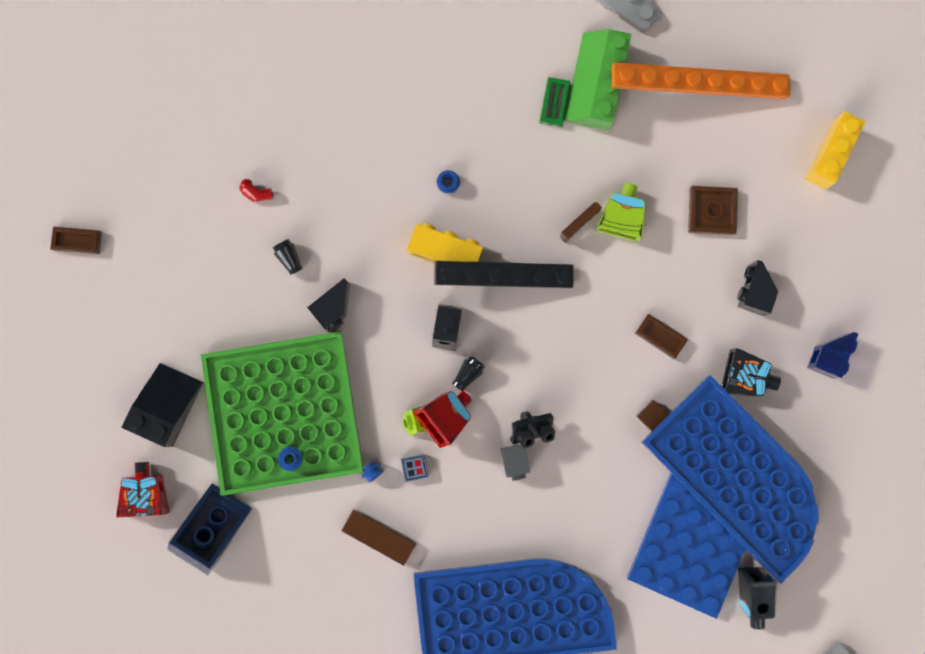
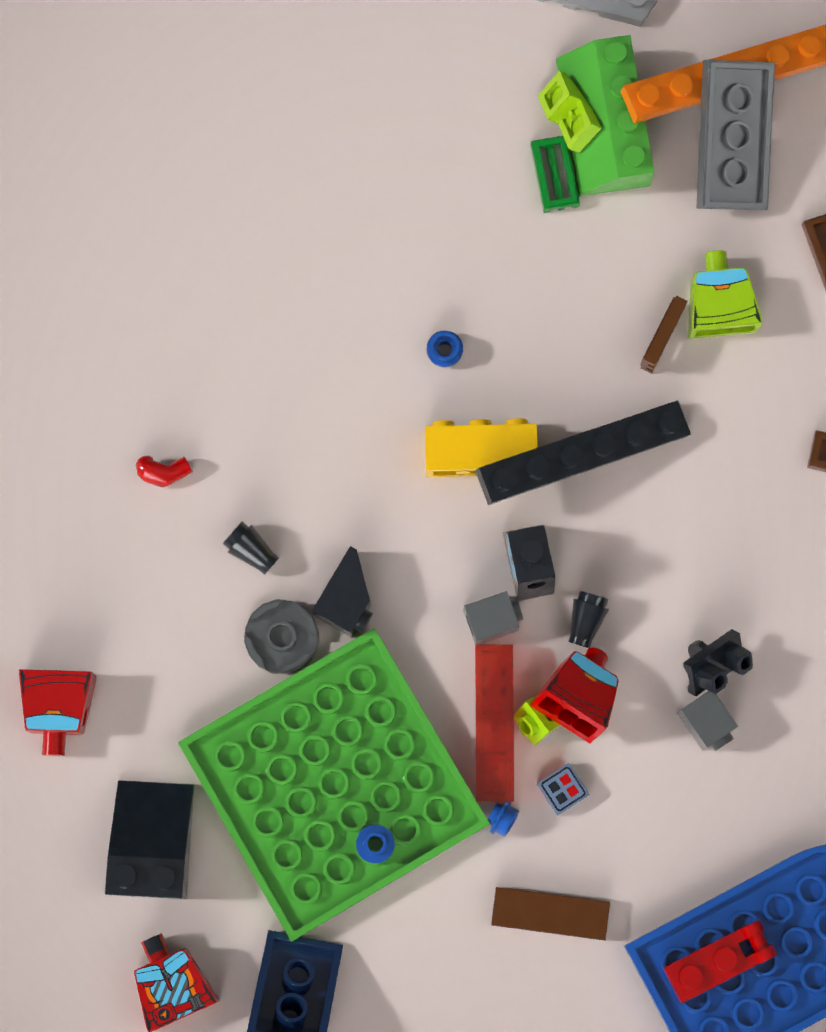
camera: 20 degrees left, 5 degrees down
(139, 306) = (56, 705): none -> red torso
(286, 315) = (281, 637): none -> dark grey tile
(388, 414) = (494, 723): none -> clear red slope
(413, 351) = (493, 617): none -> dark grey brick
(464, 605) = (718, 961): none -> red plate
(578, 66) = (570, 110): none -> lime slope
(670, 117) = (735, 135): none -> dark grey tile

